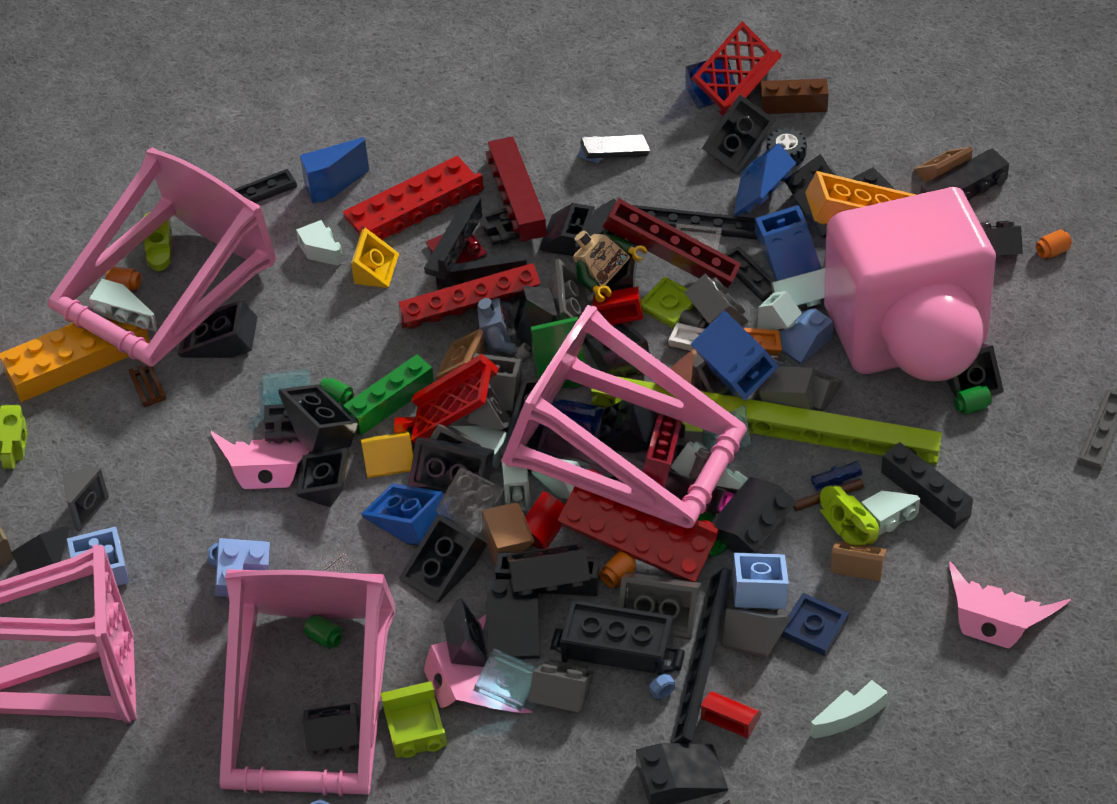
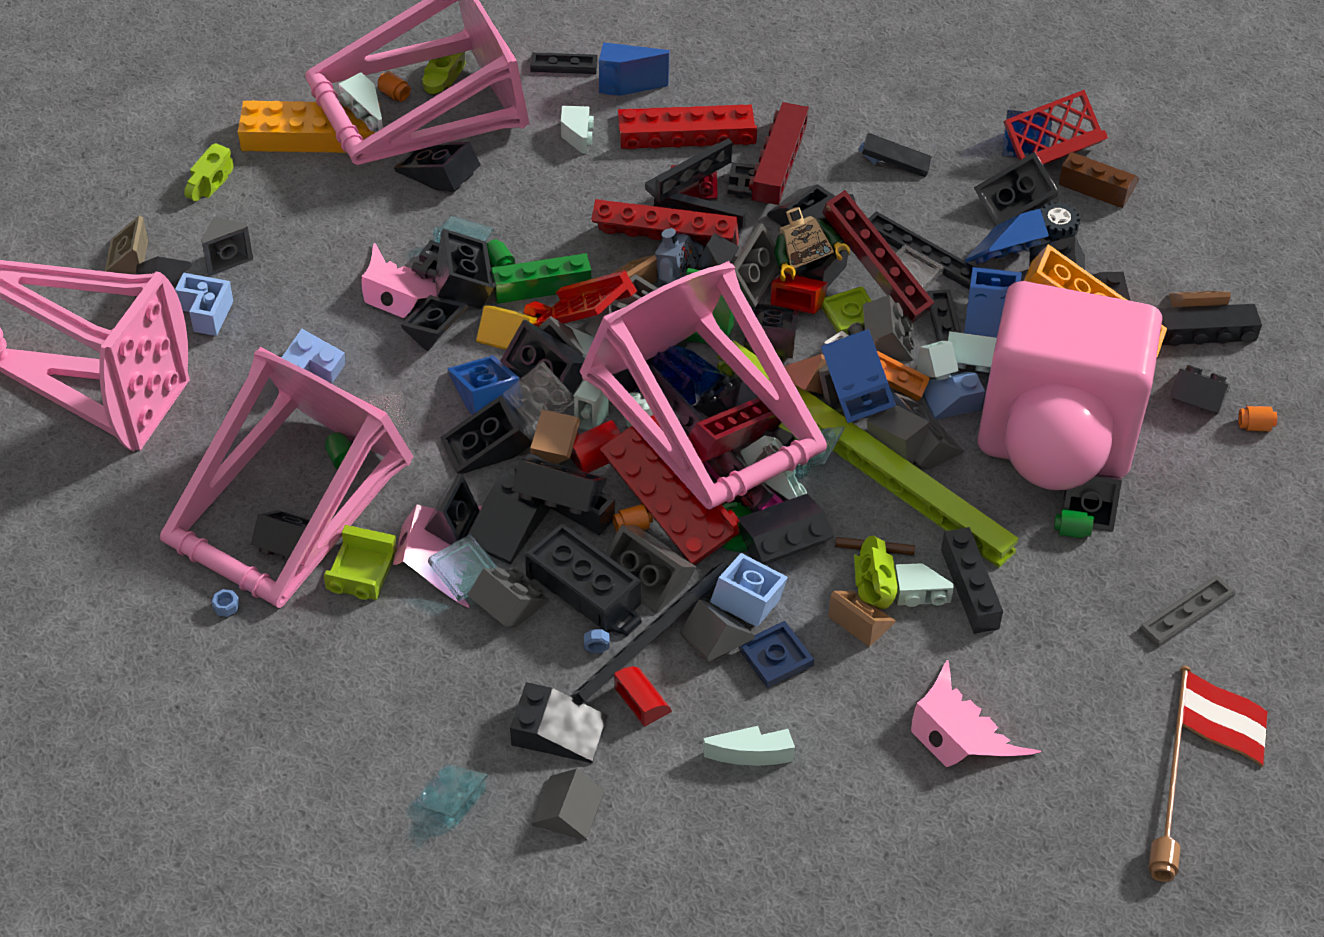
camera: 25 degrees right, 0 degrees up
(141, 371) = (352, 168): reddish brown tile -> none
(373, 261) = (611, 160): yellow slope -> none
(836, 475) = (894, 532): pin -> none

